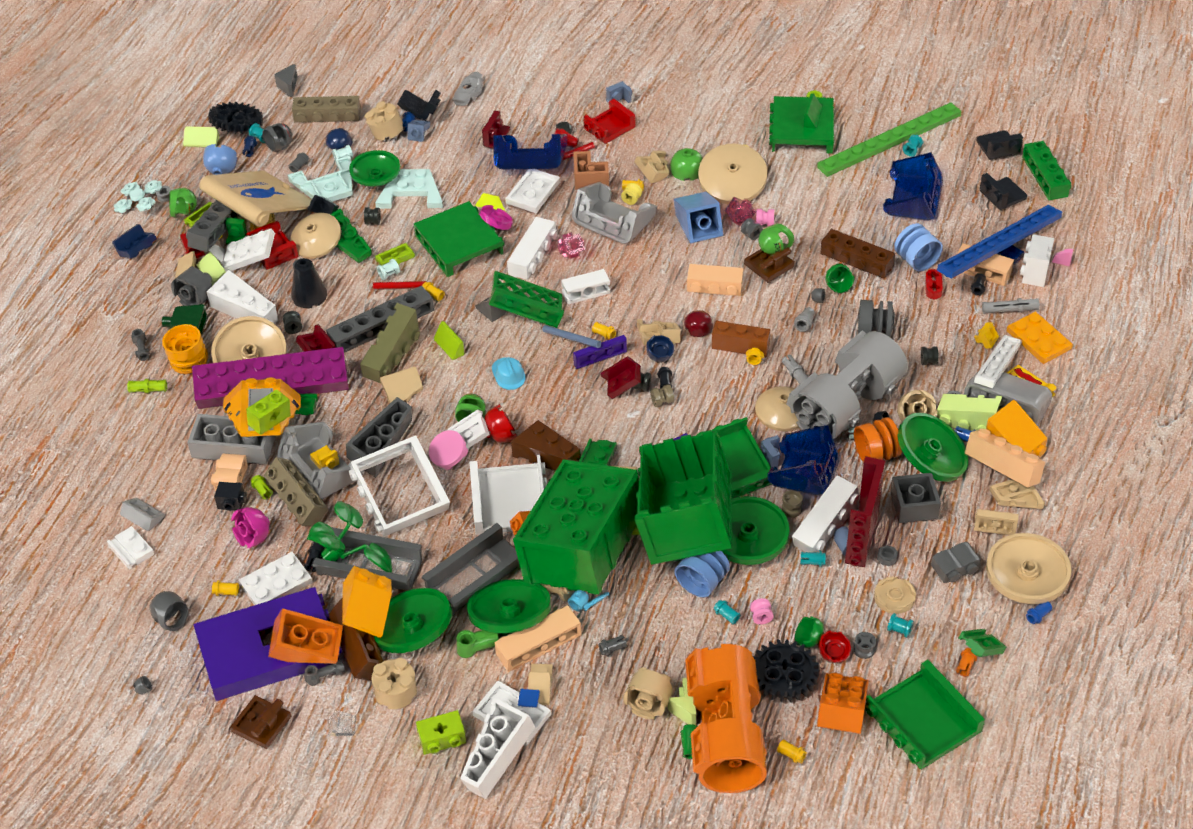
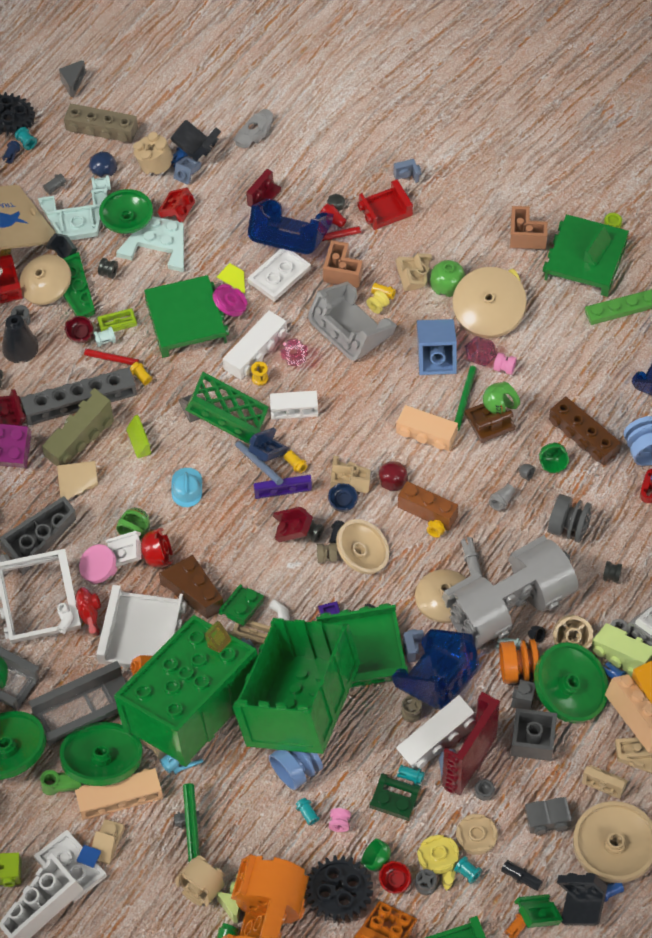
camera: 15 degrees right, 10 degrees up
(277, 136) = (41, 148): dark grey helmet -> none
(362, 267) = (79, 329): none -> dark red hair
(419, 154) = (177, 203): none -> red bracket
(433, 495) = (66, 617): none -> white arm
(451, 484) = (87, 609): none -> red animal
(544, 268) = (256, 377): none -> yellow bush
(568, 320) = (265, 446): none -> dark blue bracket
(596, 468) = (217, 637): none -> clear yellow slope
(619, 643) = (191, 821): none -> green axle
(633, 450) = (283, 612): none -> white arm
(694, 381) = (362, 546): none -> tan dish
(738, 247) = (465, 396): none -> green bar
(742, 116) = (526, 233): none -> nougat brick
(751, 228) = (486, 374): dark grey wheel -> none
(758, 531) = (363, 731): green dish -> none
(805, 586) = (394, 803): none -> dark green plate
(866, 618) = (438, 854): none -> light yellow tile
(882, 634) = (447, 879): none -> light yellow bar
(893, 467) = (523, 695): none -> dark grey brick
(952, 618) = (521, 875): none -> black axle
(1019, 621) = (583, 898): none -> black bracket

